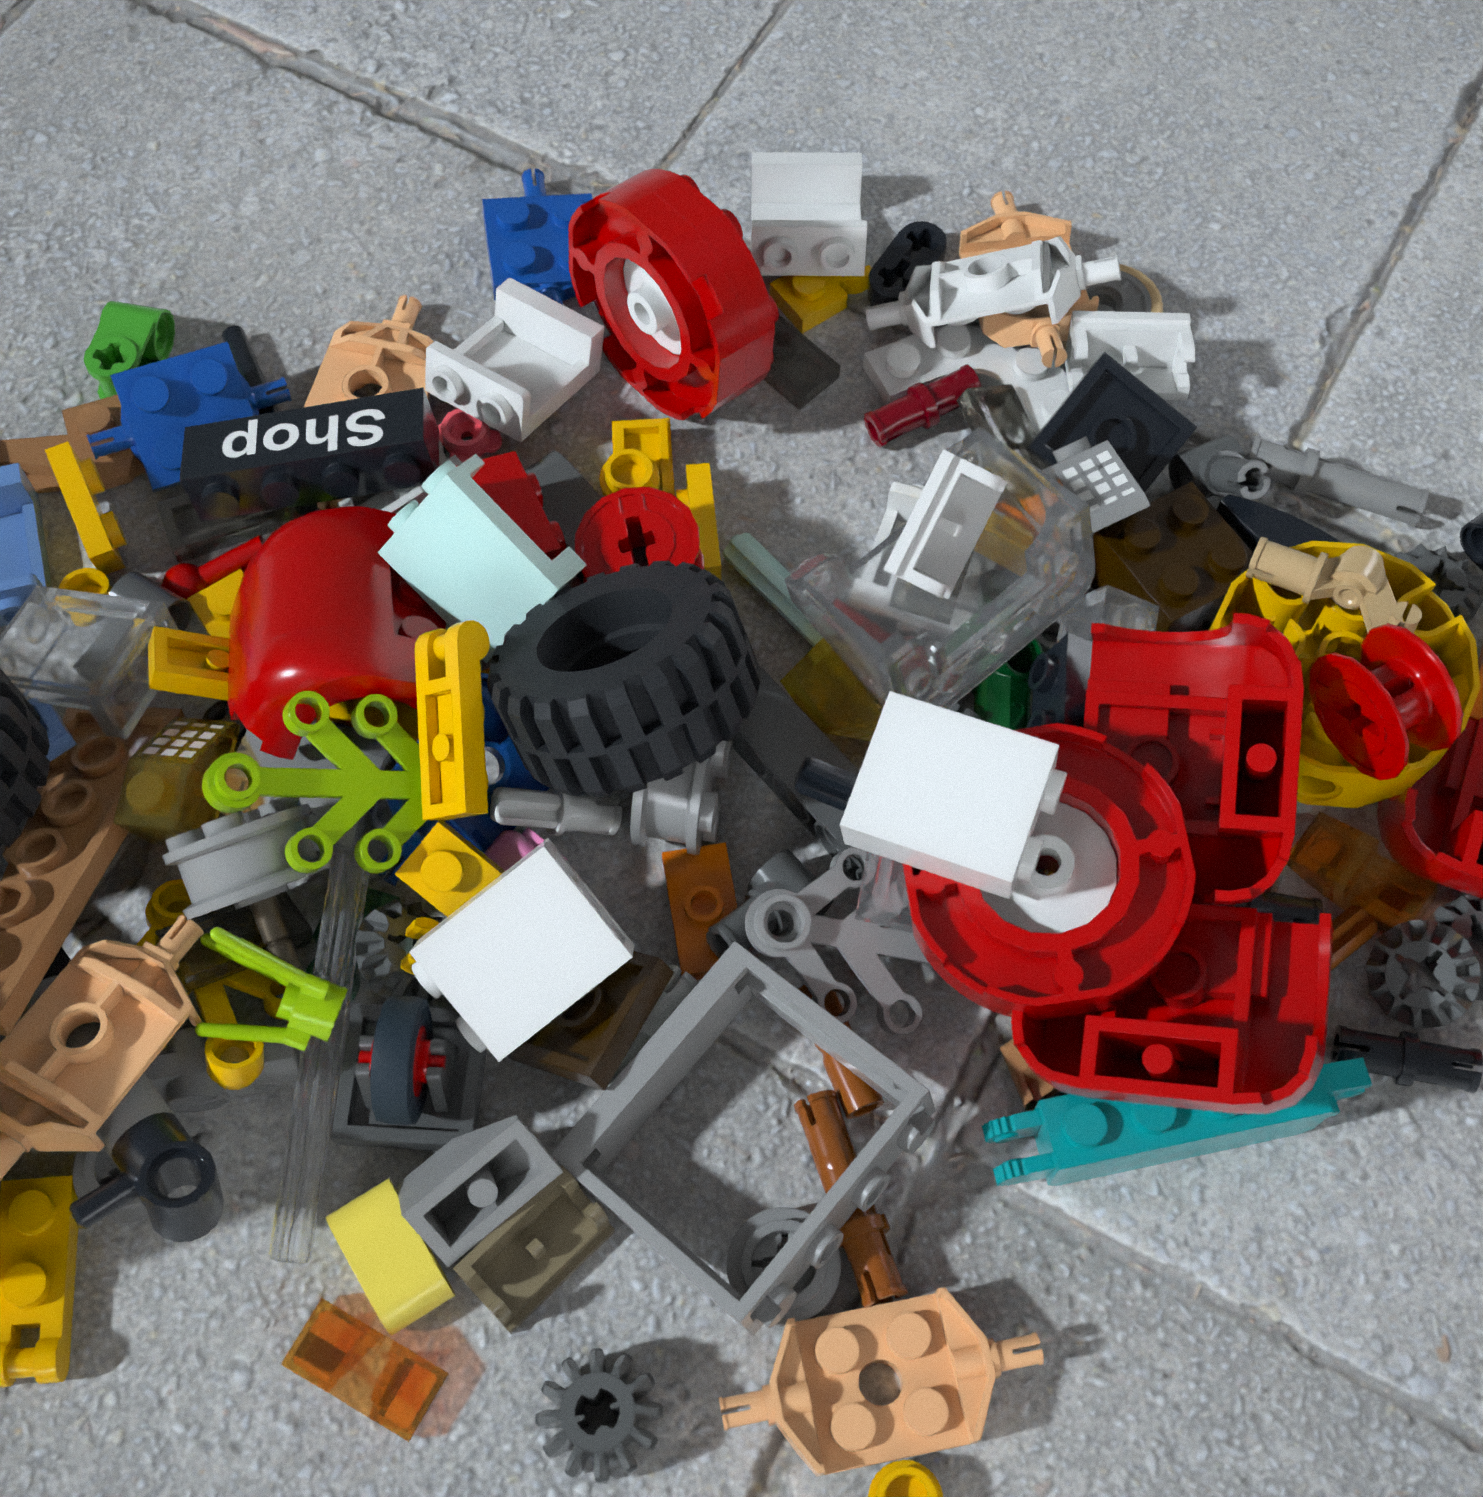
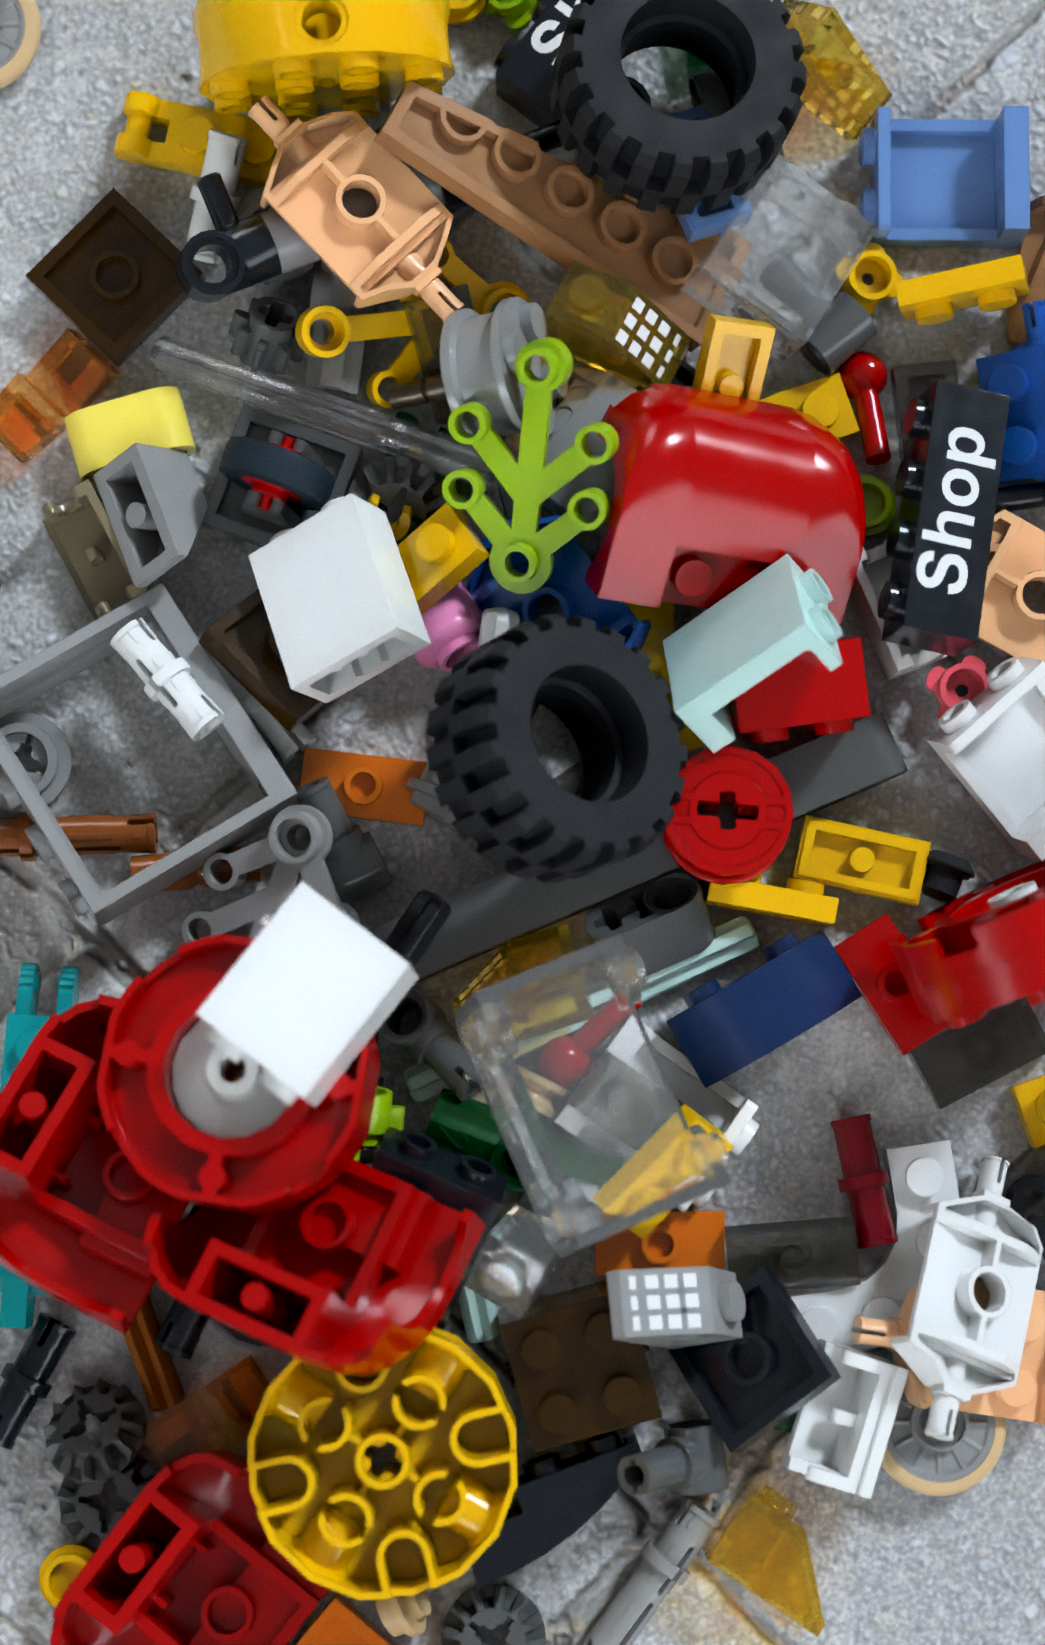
camera: 105 degrees right, 20 degrees up
(109, 1239) = (224, 156): none -> white pin
(209, 1331) = (112, 277): none -> dark brown plate
(247, 1133) = (266, 335): none -> dark grey gear
(307, 1003) = (351, 402): lime plant -> none
(451, 721) = (555, 576): yellow plate -> none
(628, 470) = (840, 837): yellow plate -> none
(637, 406) = (945, 875): none -> black piece
(654, 1103) = (167, 679): none -> white pin
(744, 429) = (883, 985): none -> red plate
(769, 616) = (659, 919): none -> dark grey beam
(801, 502) = (764, 1007): none -> dark blue brick
(945, 525) = (635, 1109): white hinge -> none
(1261, 393) = (768, 1554): none -> clear yellow slope
(1351, 580) = (445, 1493): tan pin -> none
(1385, 701) = (289, 1452): red piece -> none

